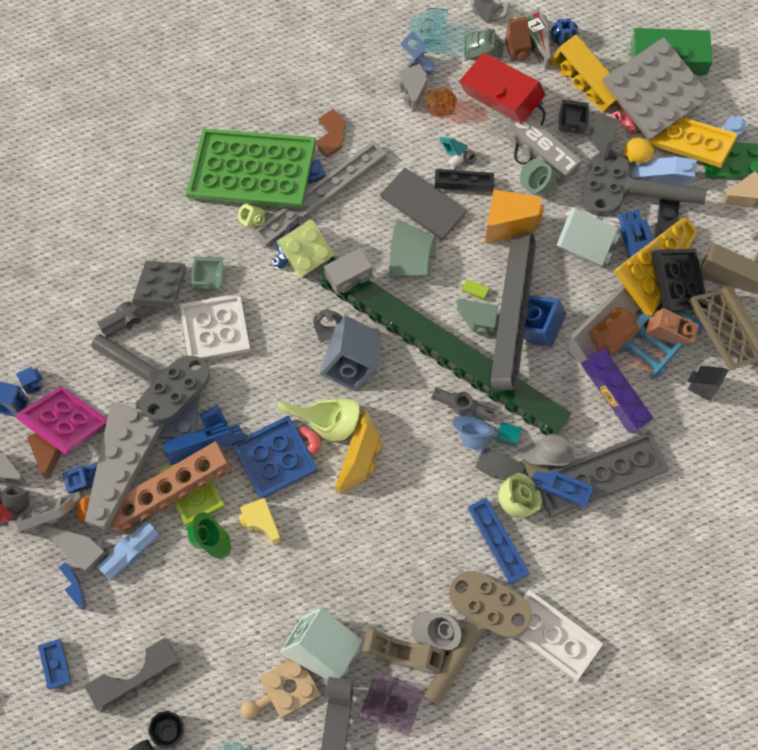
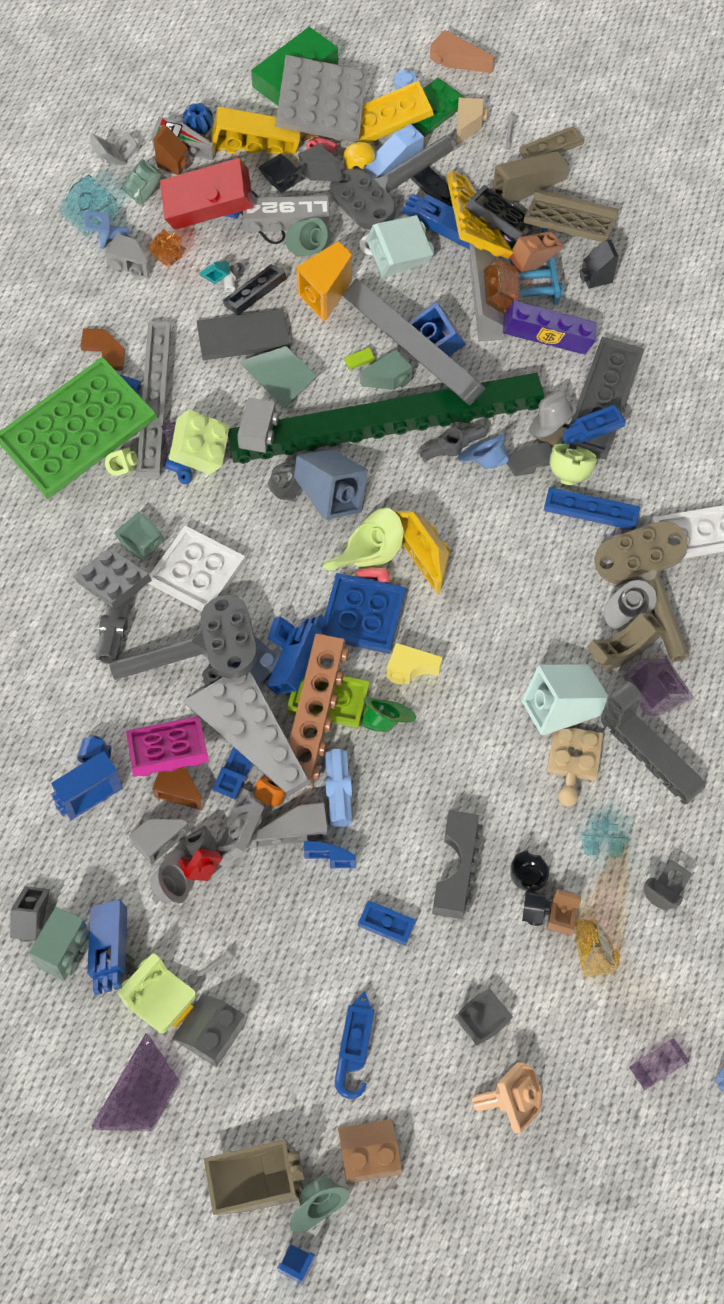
camera: 50 degrees left, 5 degrees down
(508, 434) = (512, 432): teal slope -> none

